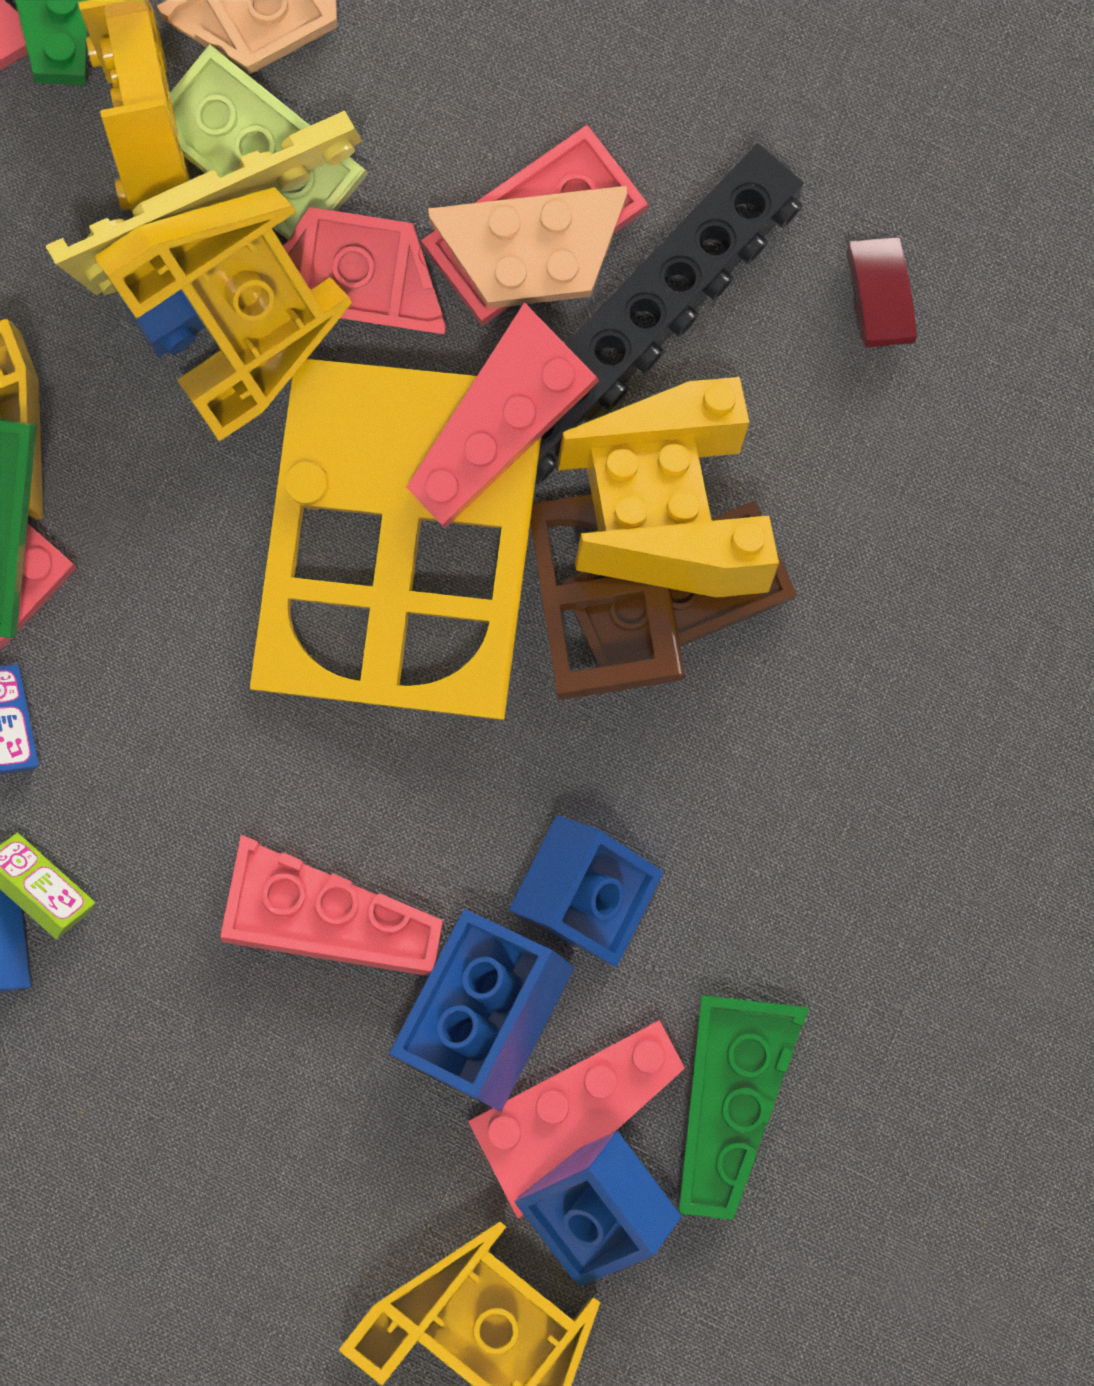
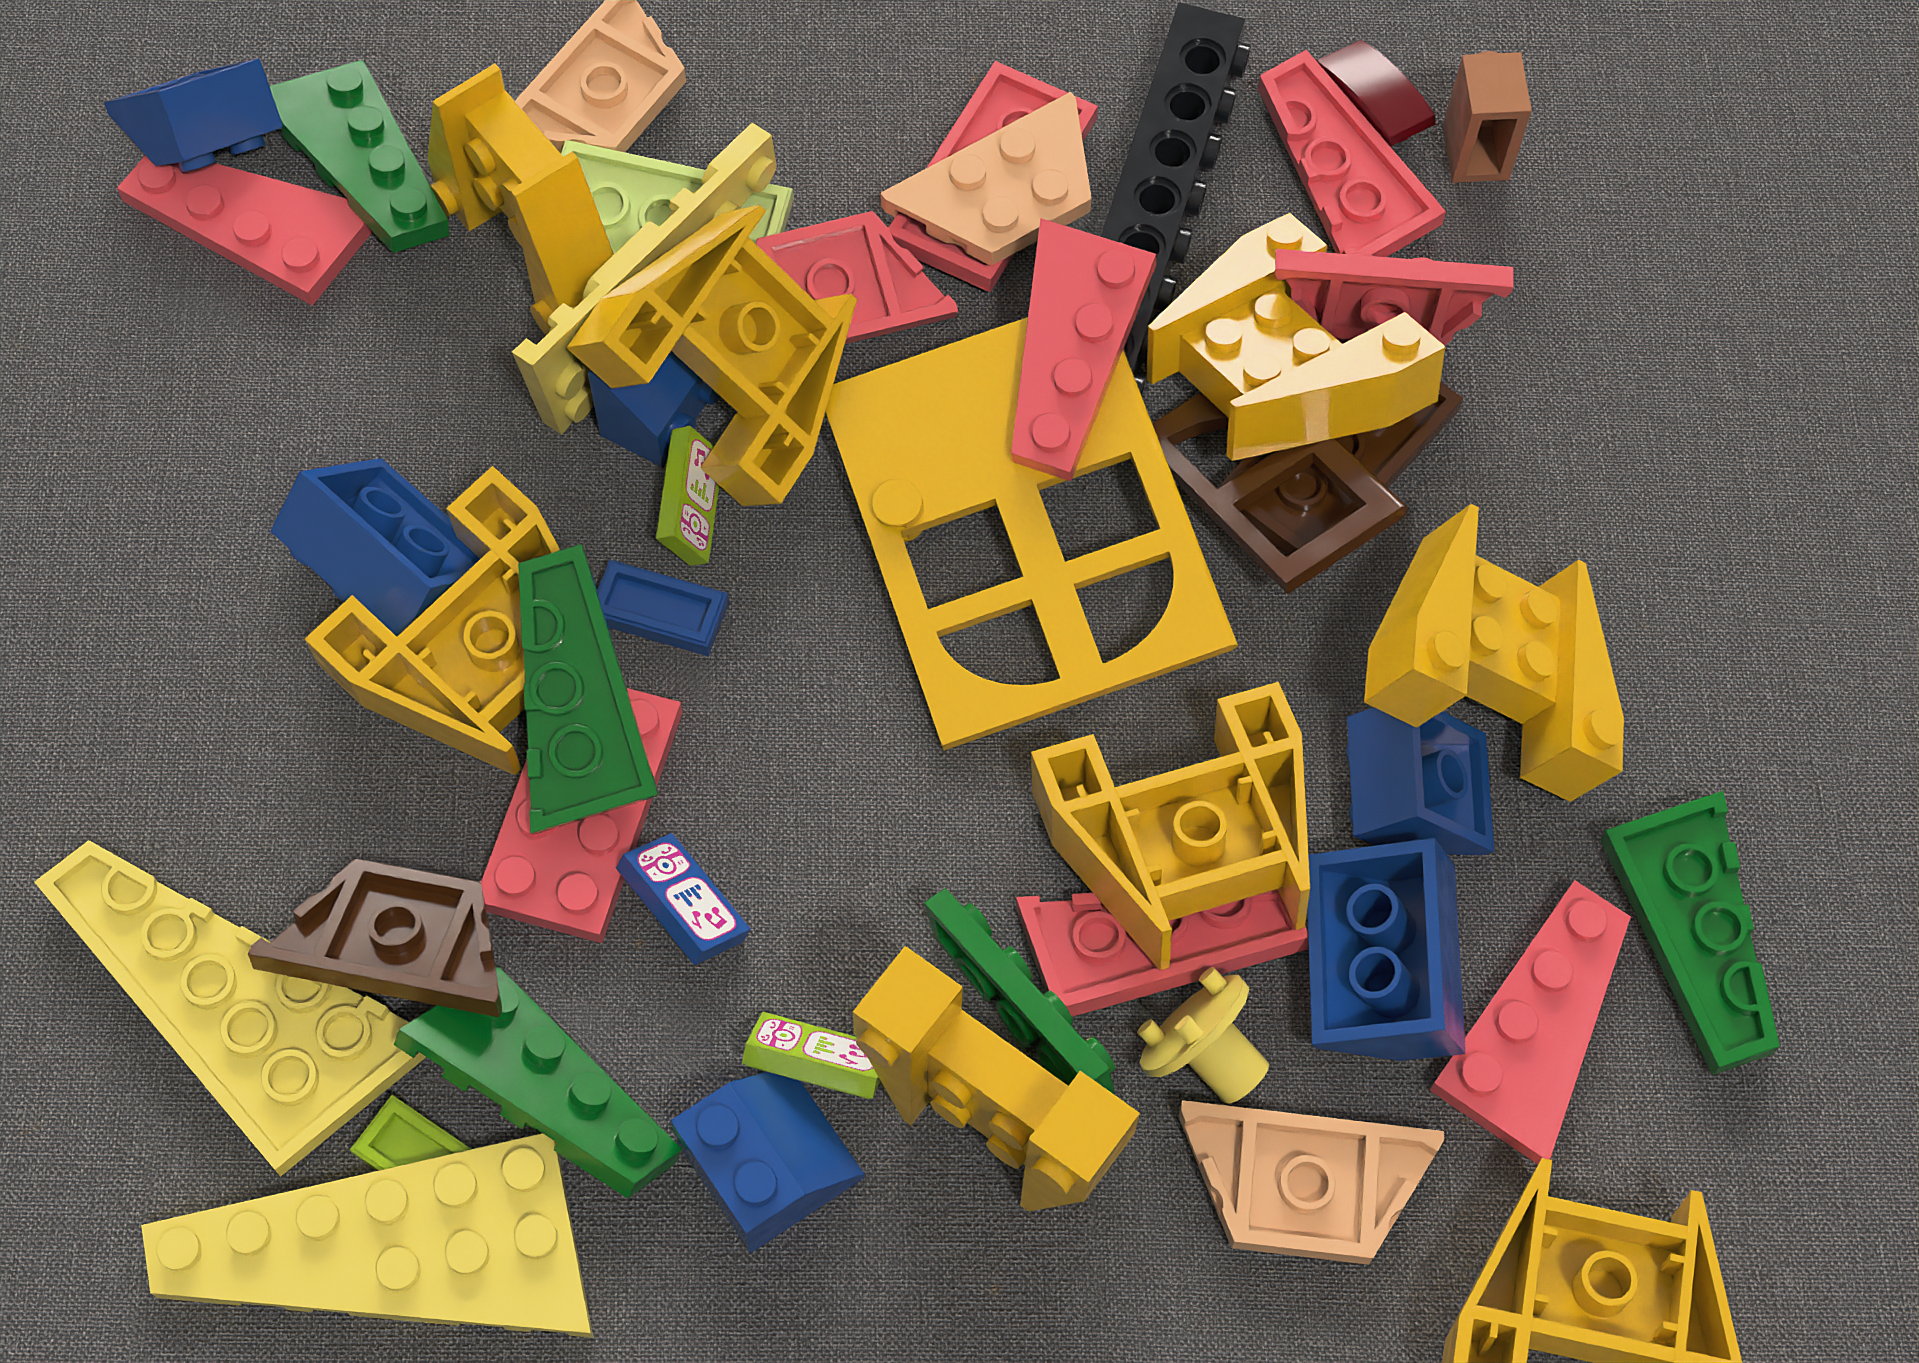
camera: 25 degrees left, 15 degrees down
(93, 929) = (933, 1049): none -> yellow wedge
(97, 476) = (661, 607): none -> blue tile
(156, 400) = (687, 498): none -> lime tile
(199, 939) = (1022, 1007): none -> green wing
(314, 1010) = (1206, 1039): none -> light yellow piece
(336, 1146) = (1306, 1179): none -> light nougat wing
(384, 856) = (1188, 833): none -> yellow wedge
(599, 1210) = (1634, 1104): blue slope -> none
(698, 817) = (1508, 645): none -> yellow wedge
(779, 492) = (1366, 290): none -> coral wing
(823, 356) = (1349, 171): none -> coral wing
(950, 361) = (1486, 117): none -> nougat brick

